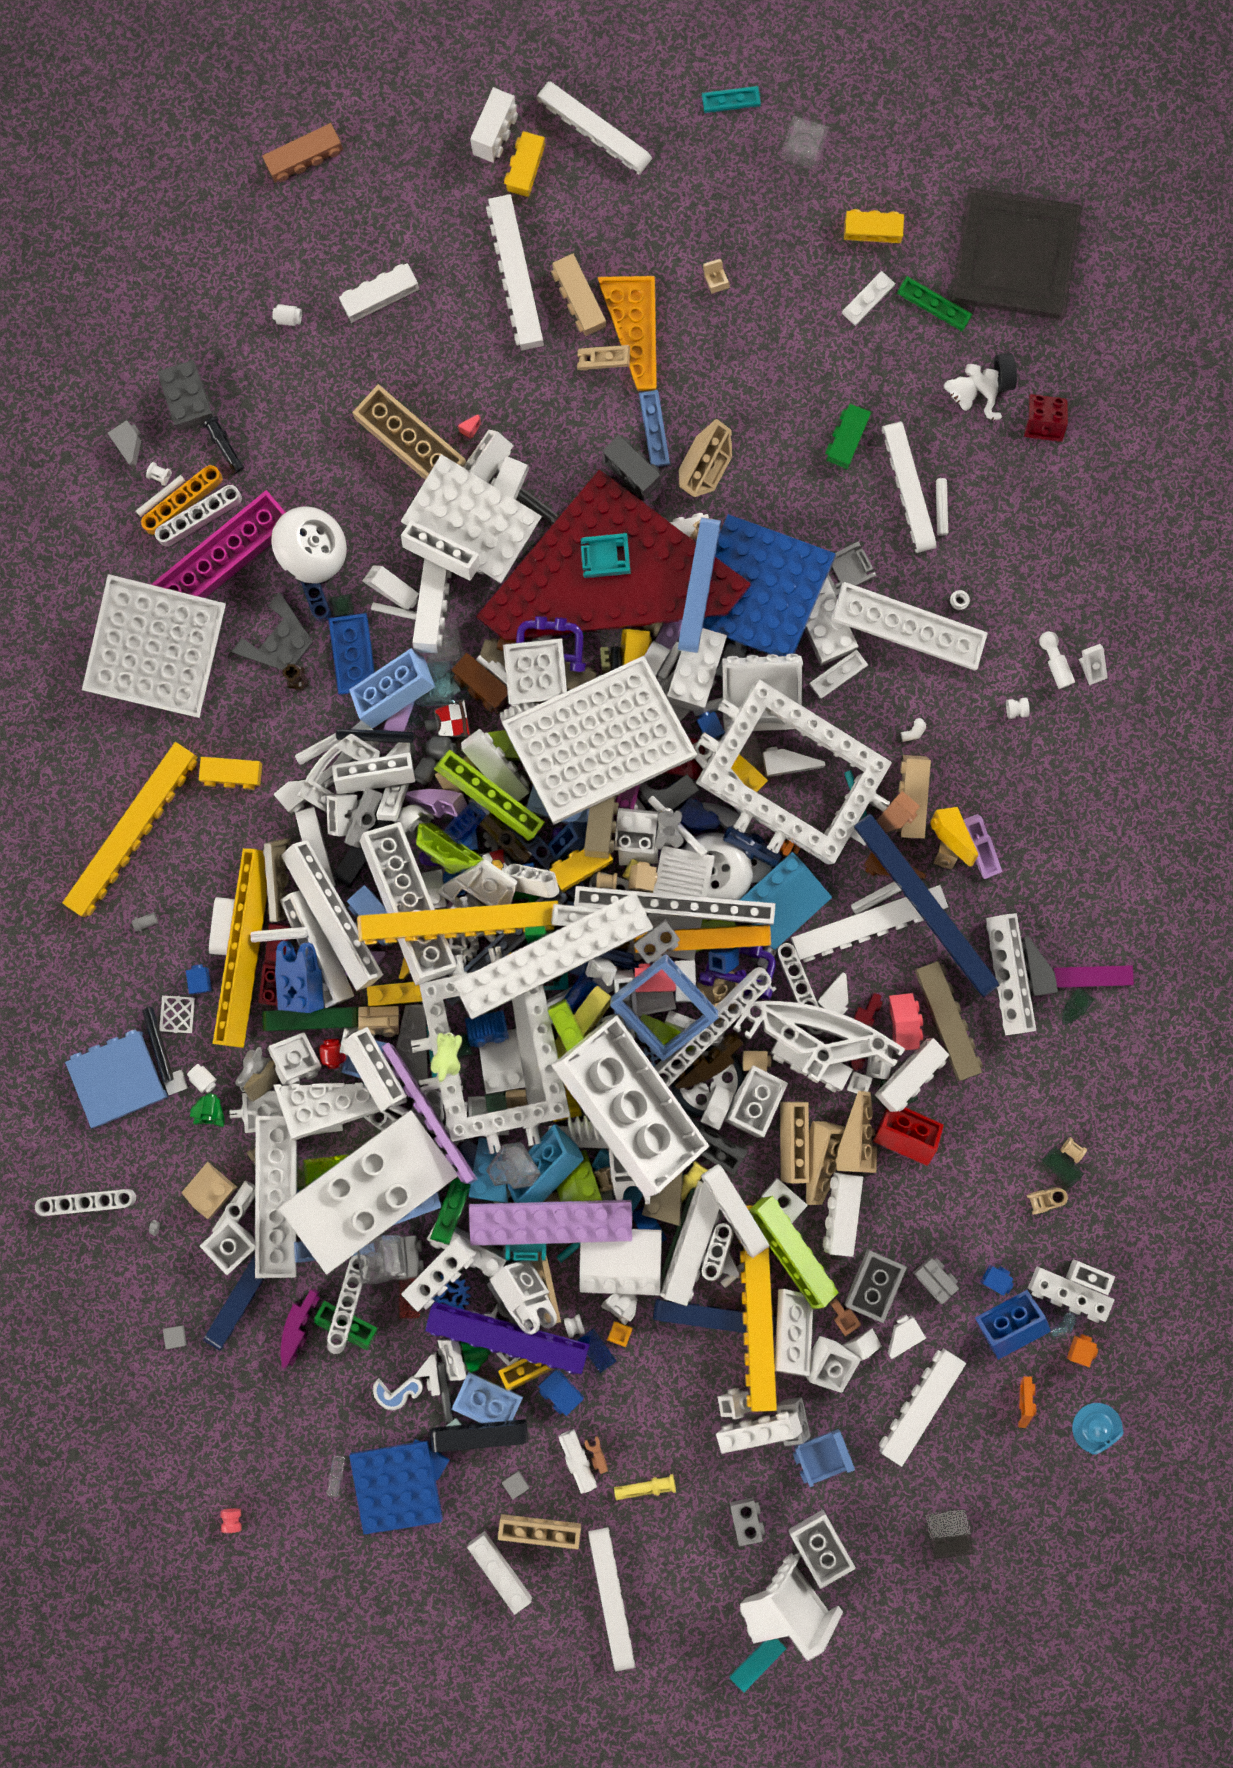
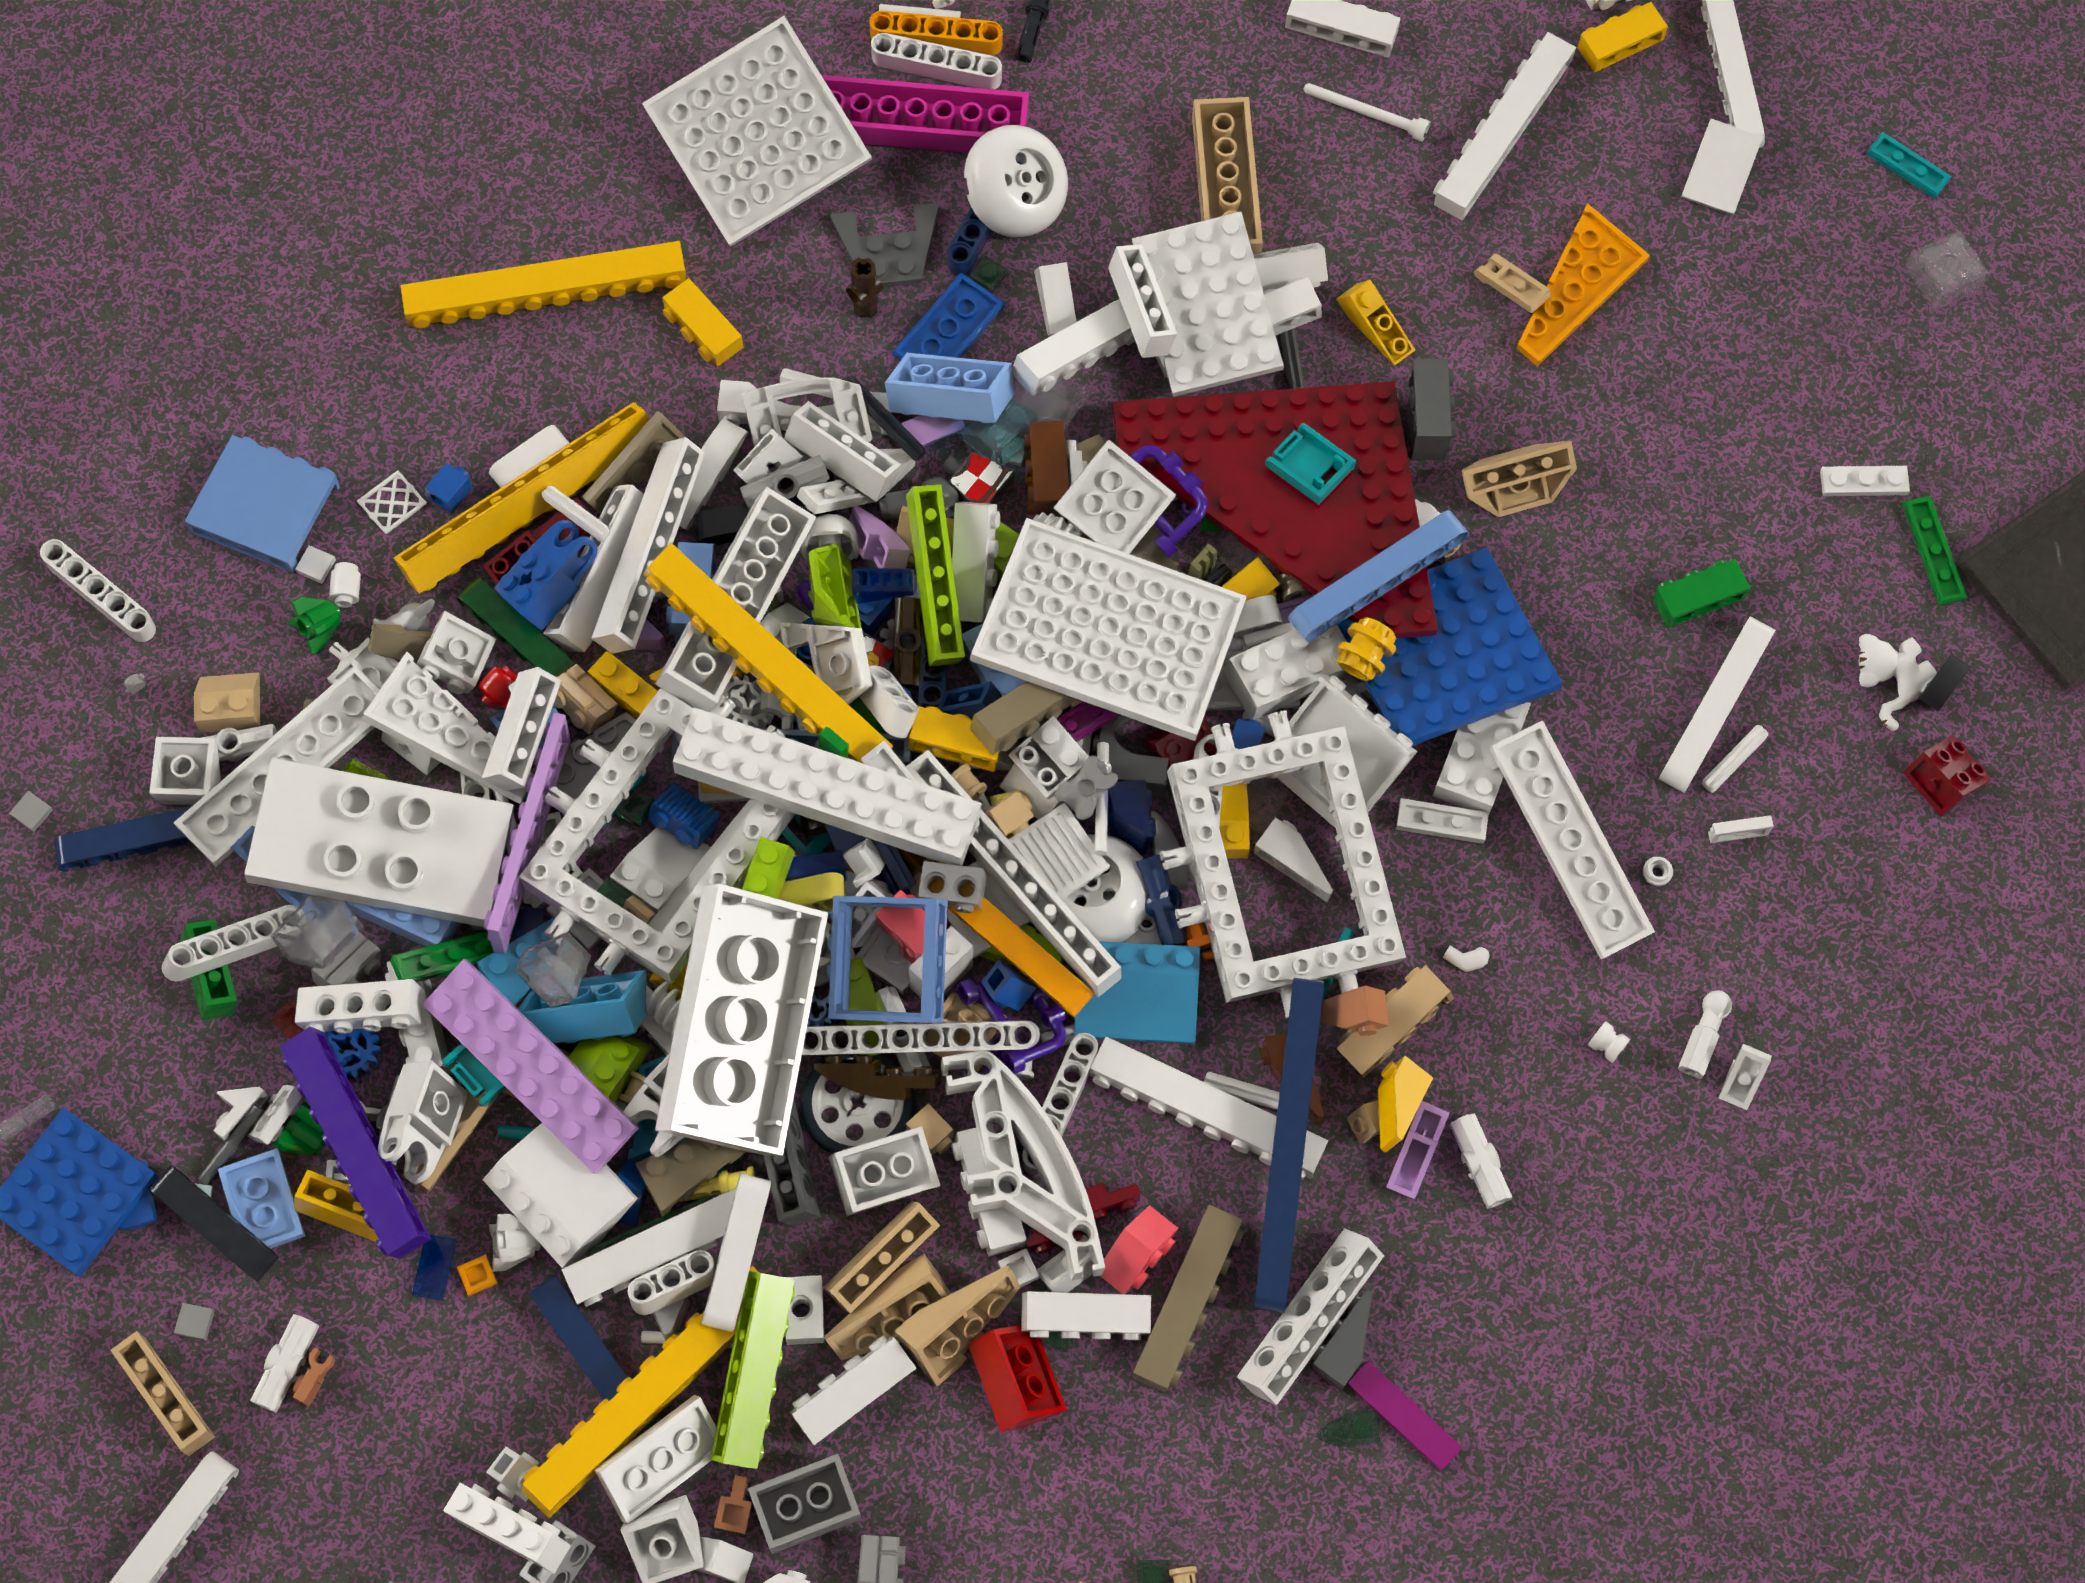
camera: 40 degrees right, 15 degrees down
(144, 922) = (460, 383): light grey pin -> none
(157, 1044) = (339, 510): black axle -> none
(293, 1334) = (147, 926): magenta slope -> none
(393, 610) = (1030, 320): white bar -> none
(398, 1398) = (183, 1101): white animal -> none
(446, 1057) = (606, 781): yellowish green animal -> none
(470, 426) = (1303, 224): coral slope -> none
(472, 316) = (1415, 127): none -> white piece
(499, 1572) = (74, 1394): white brick -> none
(556, 443) = (1375, 320): none -> yellow slope
(560, 1392) = (348, 1269): blue brick -> none
(574, 1326) = (438, 1214): white wheel -> none
(579, 295) = (1549, 204): tan brick -> none
(644, 191) = (1722, 167): none -> white tile
(654, 428) = (1496, 400): medium blue tile -> none
(654, 1487) = (334, 1477): light yellow pin -> none
(715, 276) = (1716, 311): tan bracket -> none
(717, 1107) = (835, 1134): white slope -> none
(729, 628) = (1368, 645): none -> yellow piece
(836, 996) = (1092, 1147): white slope -> none
(851, 567) = (1569, 723): light grey container -> none
(873, 226) = (1942, 415): yellow brick -> none
(979, 541) = (1740, 829): none -> white tile
(1014, 823) = (1481, 1160): none -> white piece

